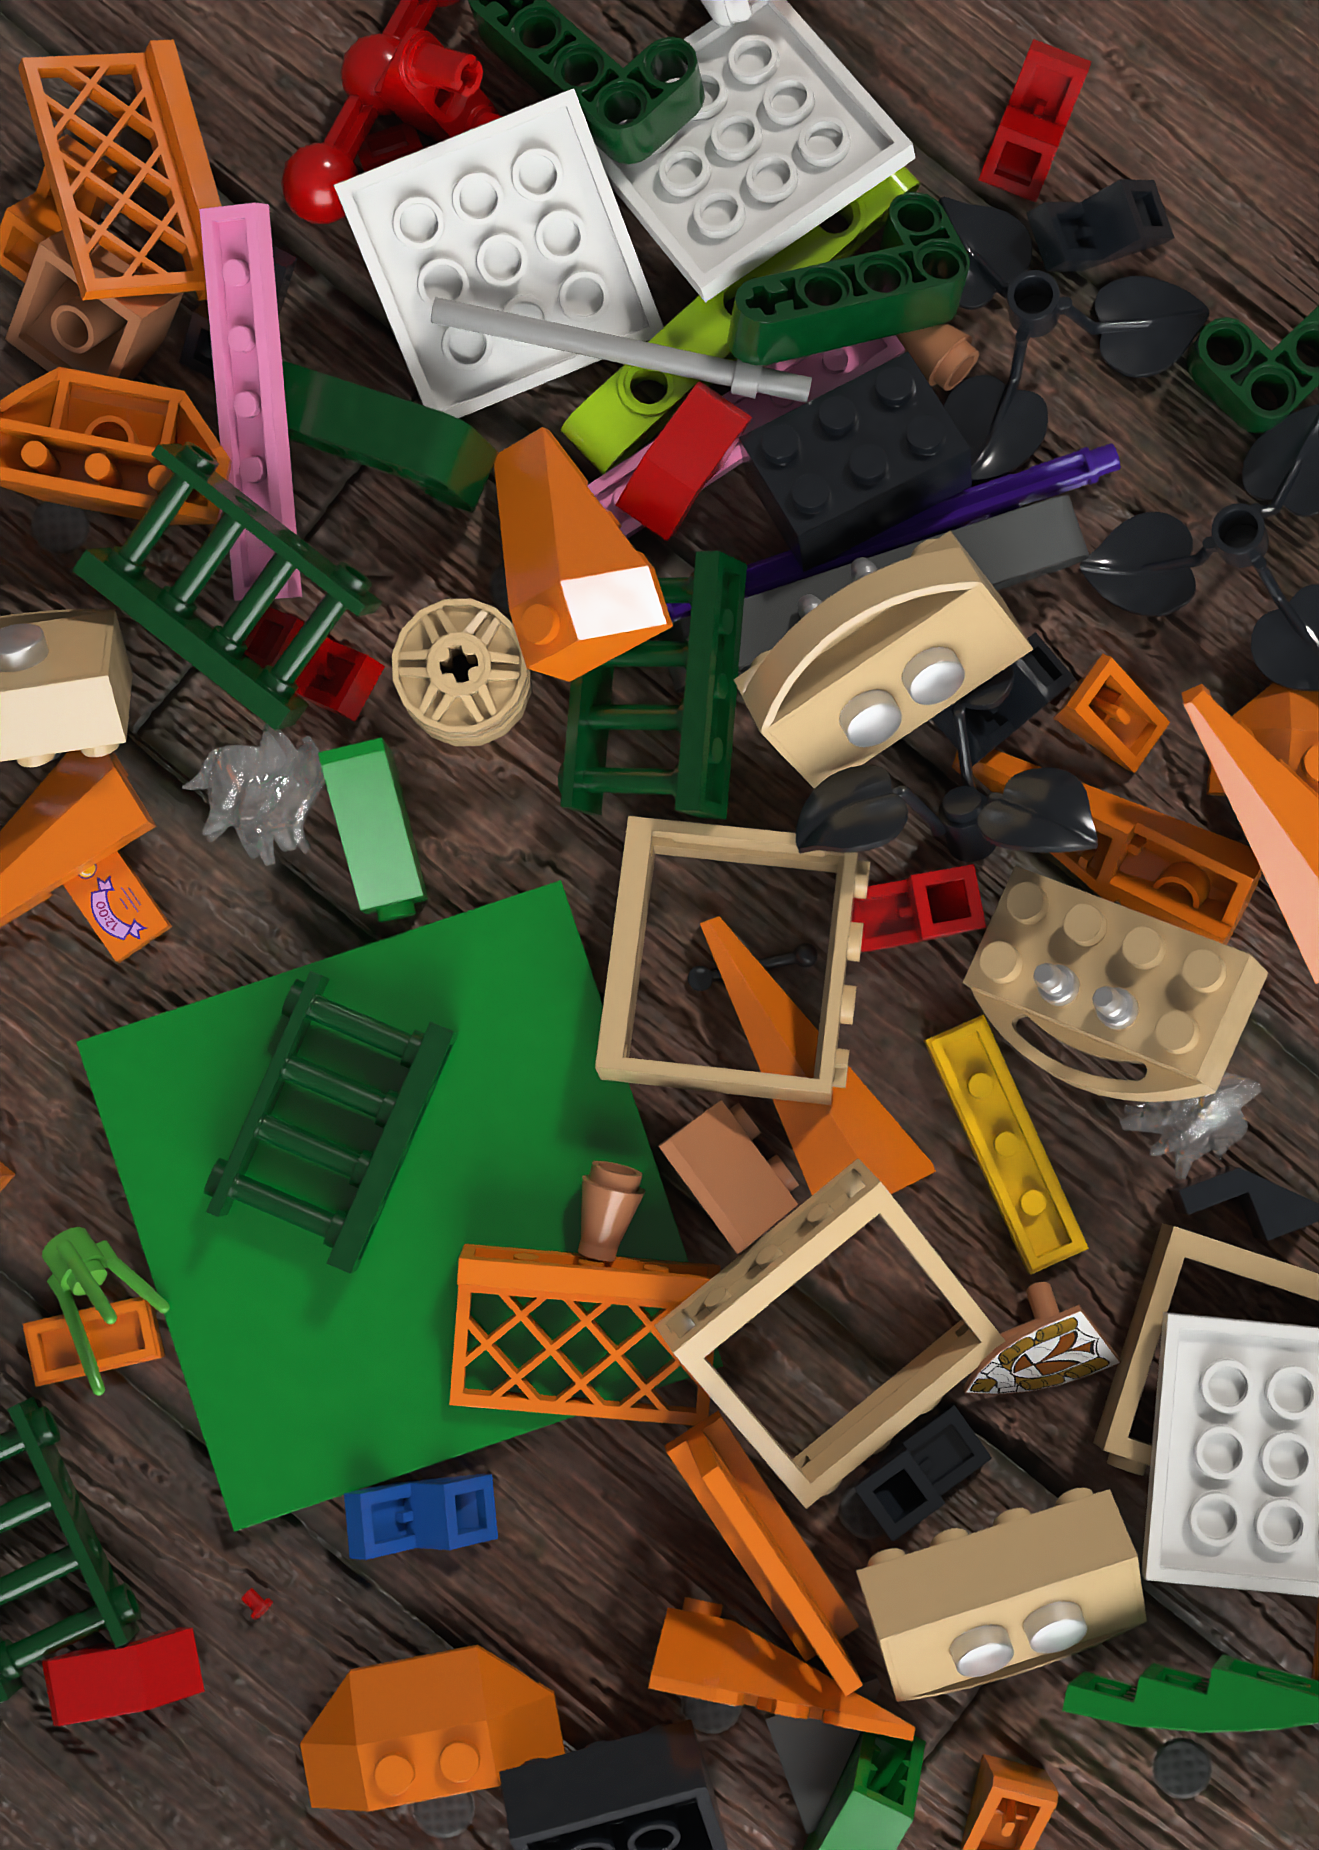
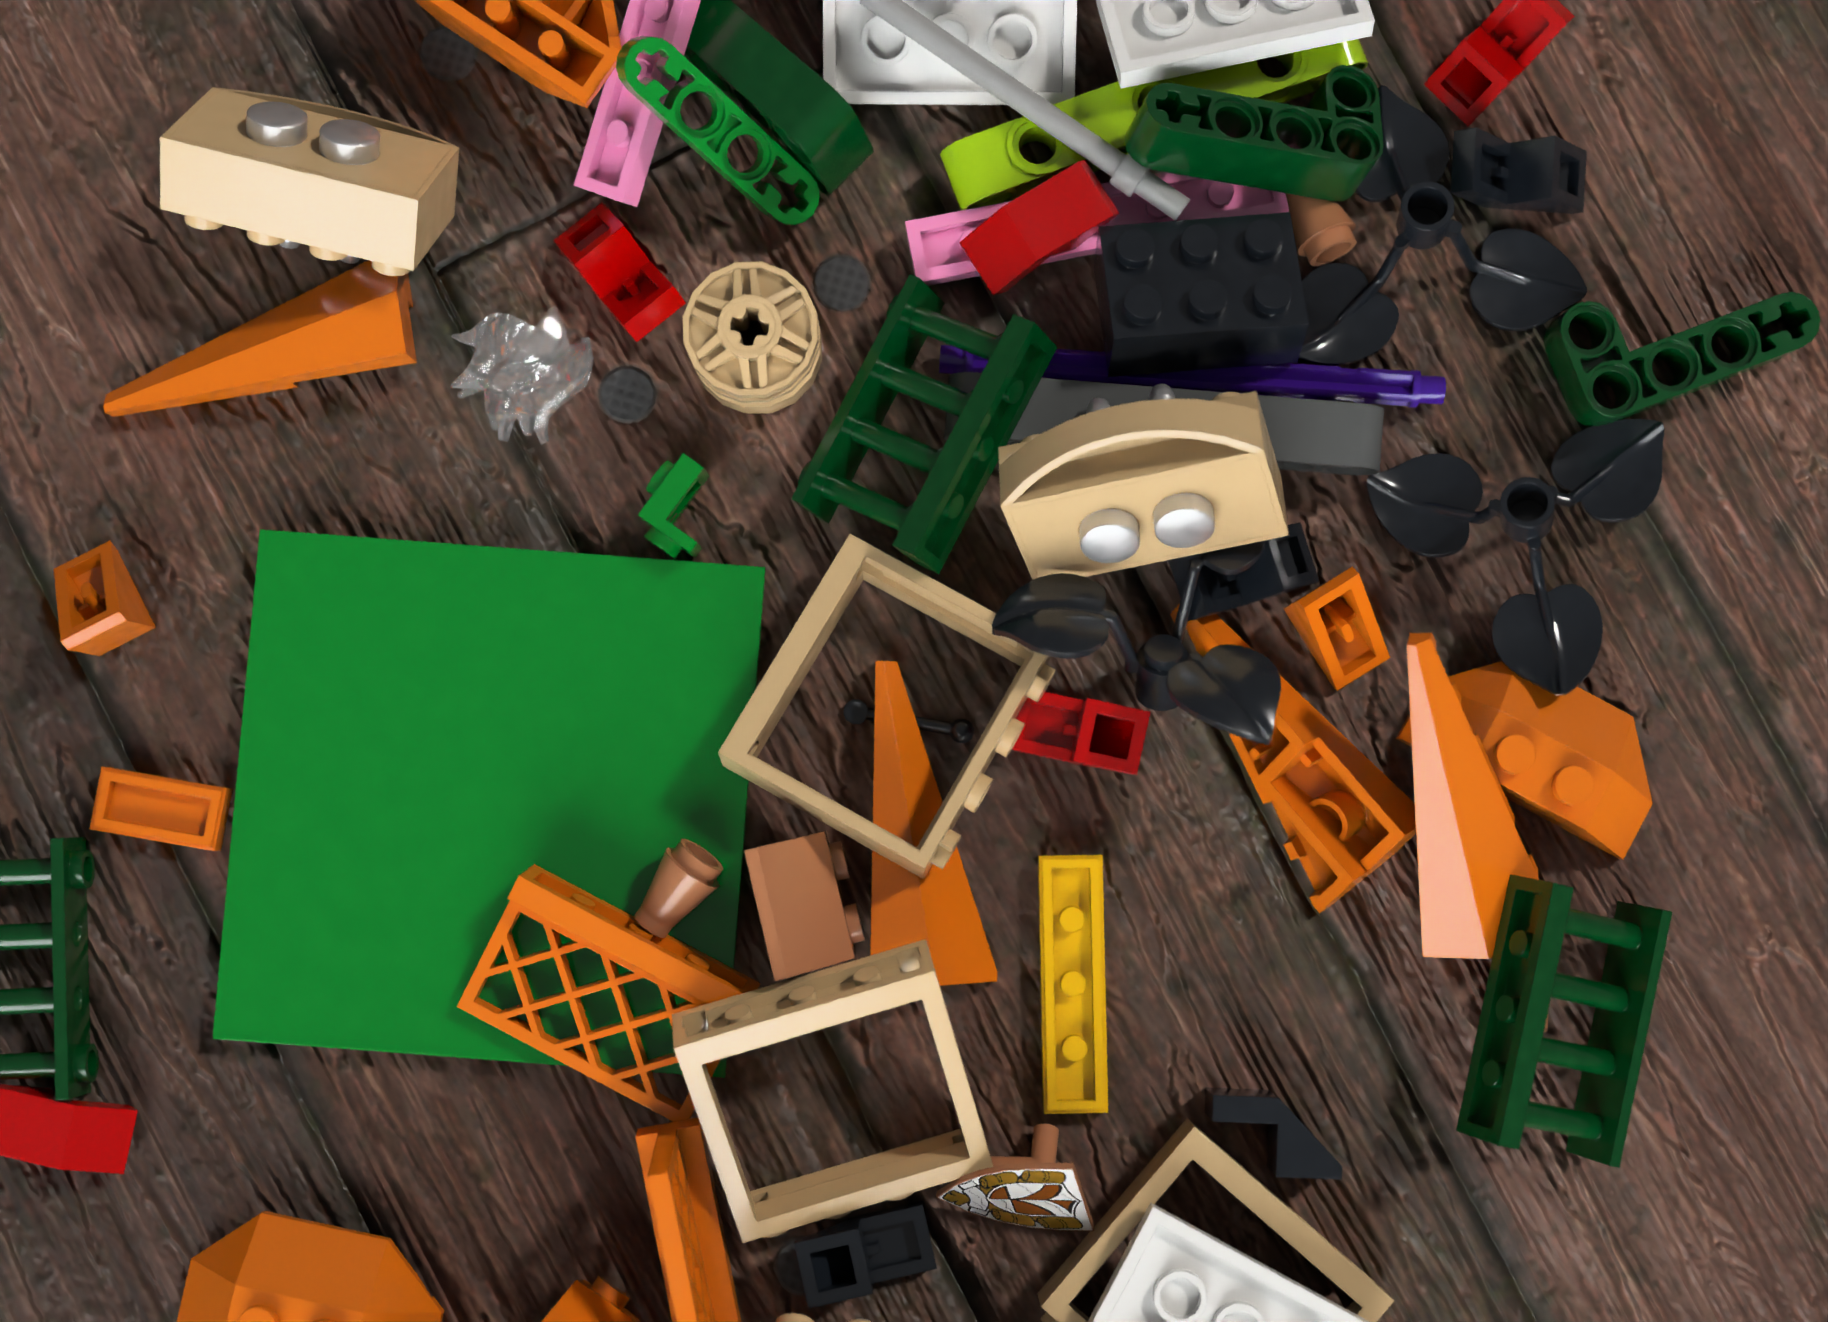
camera: 25 degrees right, 0 degrees up
(80, 1268) = (173, 739): bright green plant -> none
(117, 906) = (351, 421): orange tile -> none
(170, 610) = (507, 168): dark green fence -> none
(256, 1603) = (206, 1113): red piece -> none
(352, 490) = (724, 125): none -> green beam
(369, 1171) = (474, 762): dark green fence -> none
(374, 828) = (612, 446): slope -> none
(420, 1515) = (390, 1095): blue slope -> none
(445, 845) = (672, 491): none -> green bracket
(569, 569) = (891, 284): orange wedge -> none
(1113, 989) = (1230, 883): tan piece -> none
(1196, 1123) = (1259, 1016): clear hair -> none

